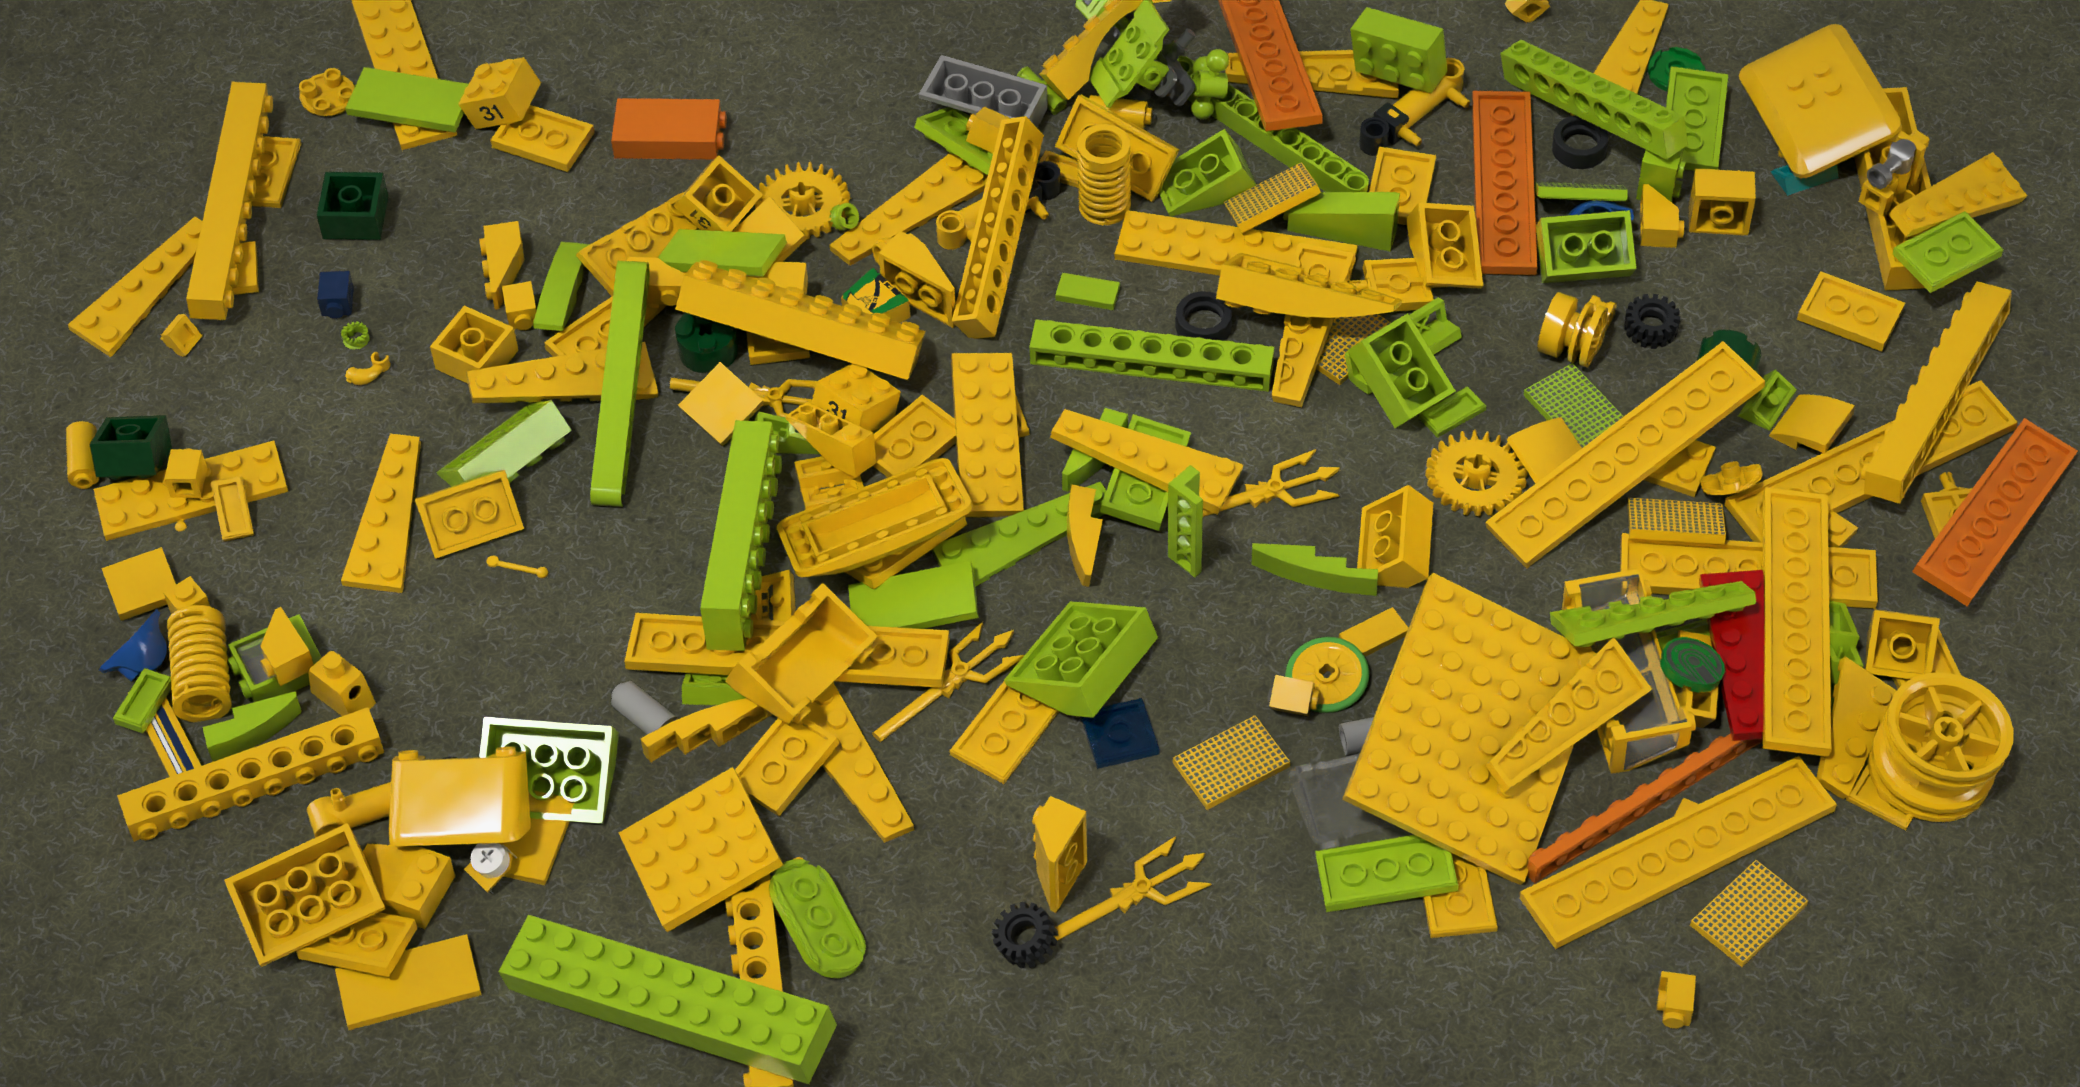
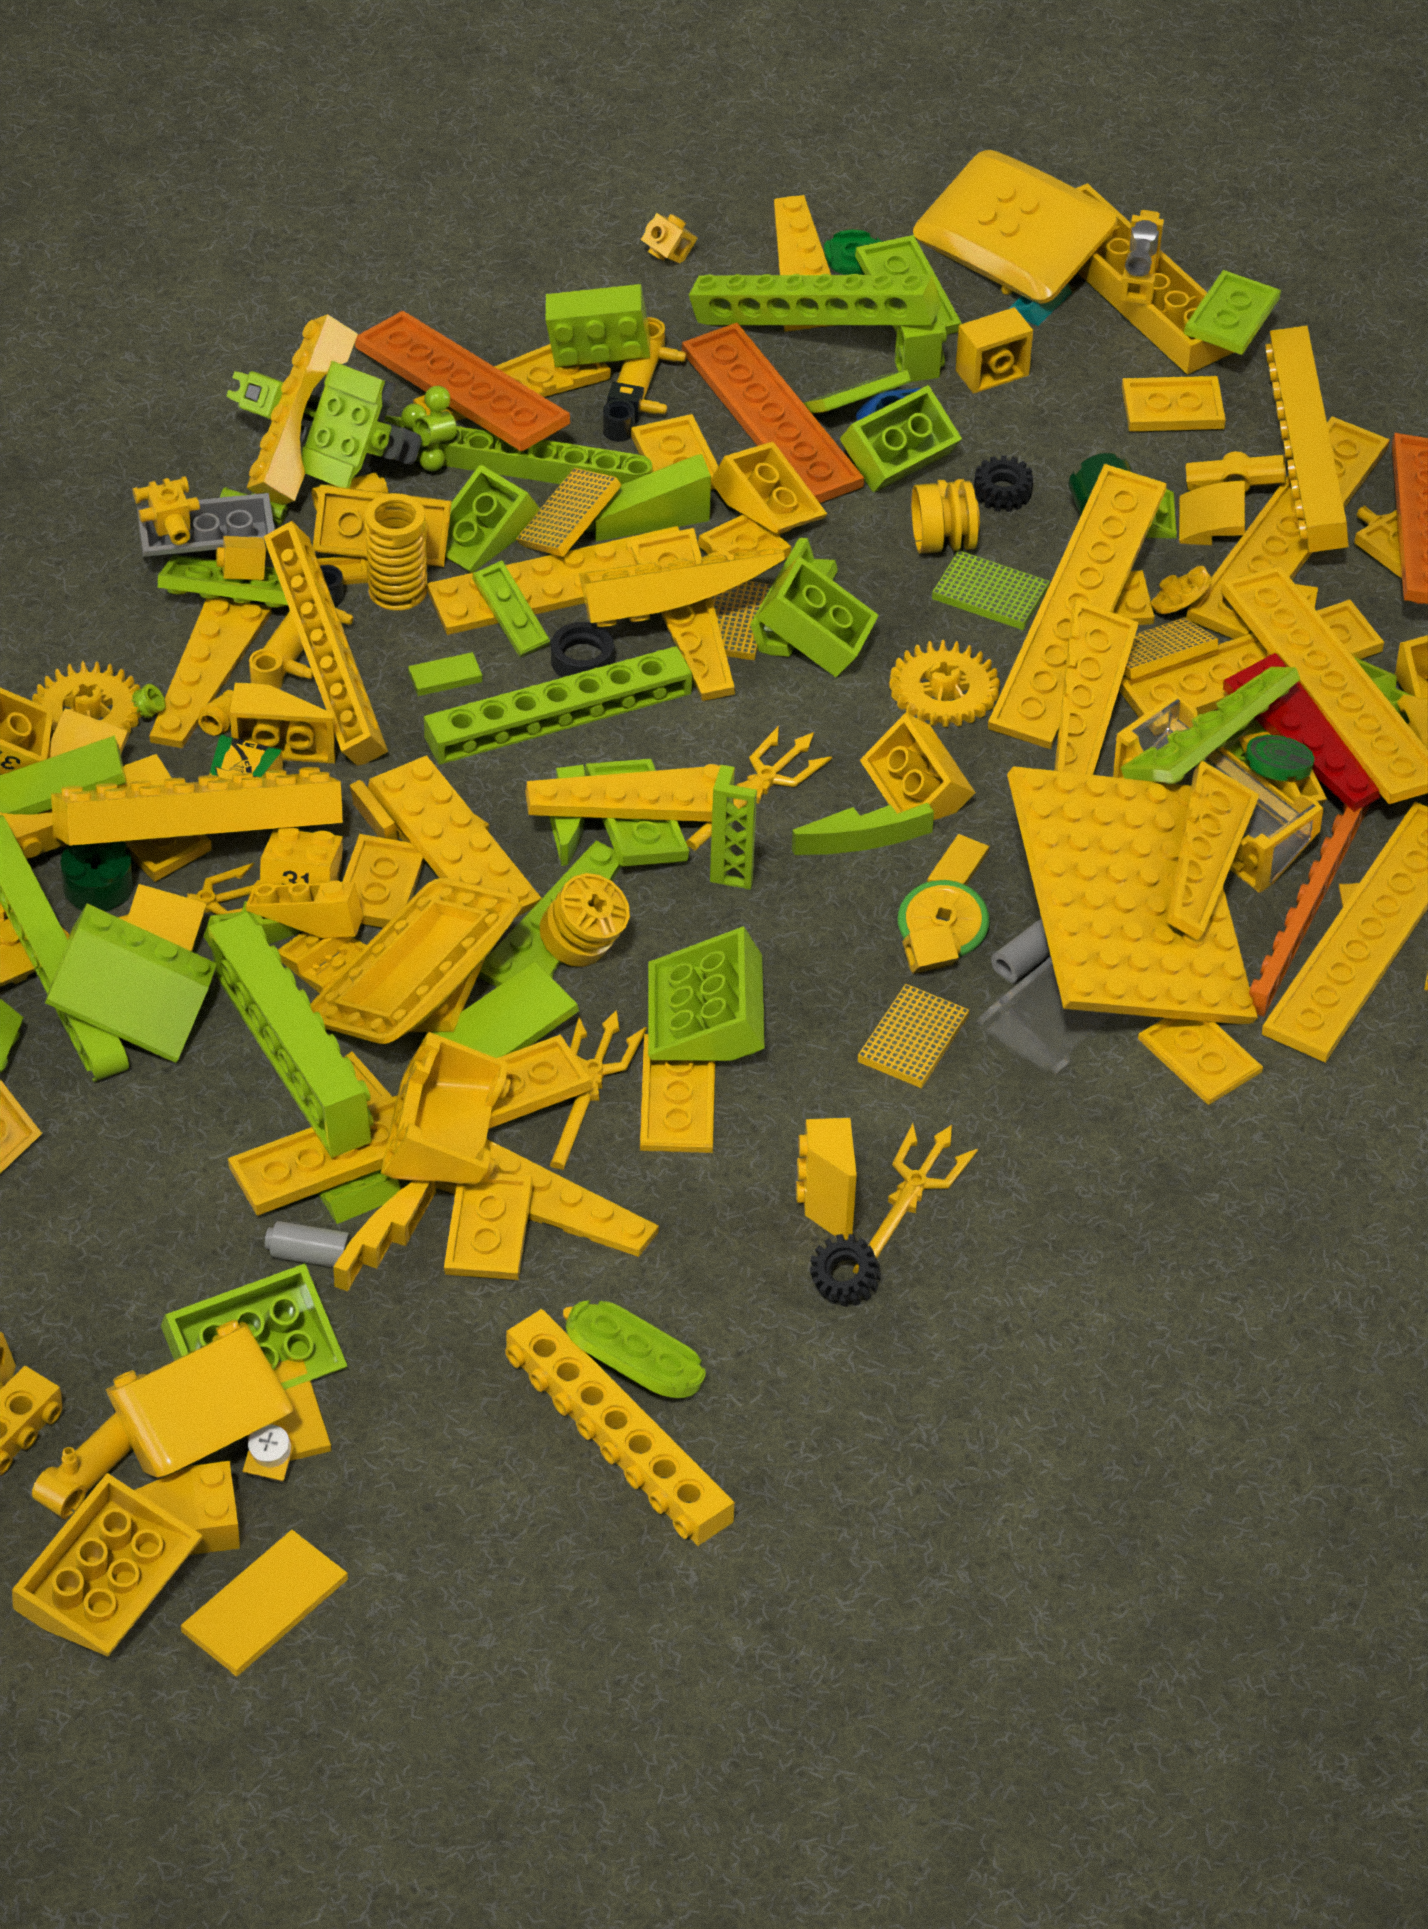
camera: 35 degrees left, 5 degrees down
(366, 946) = (203, 1584): yellow plate -> none
(493, 561) = (32, 1179): yellow hinge -> none
(655, 439) = (130, 982): none -> lime slope
(669, 998) = (553, 1482): lime brick -> none
(700, 849) = (474, 1338): yellow plate -> none
(945, 386) = (373, 811): none -> yellow tile
(956, 66) = (168, 508): none -> yellow piece
(1019, 556) = (584, 920): none -> yellow wheel
(1082, 531) = (605, 861): yellow slope -> none
(1120, 734) = (790, 1058): tile -> none
(1171, 259) = (511, 609): none -> lime tile
(1384, 872) = (1128, 1065): lime tile -> none
(1452, 412) = (881, 640): lime tile -> none
(1544, 447) = (995, 634): yellow slope -> none
(1574, 157) = (816, 366): black tyre -> none
(1596, 517) = (1093, 674): none -> yellow wing
(1658, 220) = (948, 385): yellow slope -> none
(1858, 392) = (1237, 467): none -> yellow piece
(1974, 189) = (1202, 260): yellow wing -> none

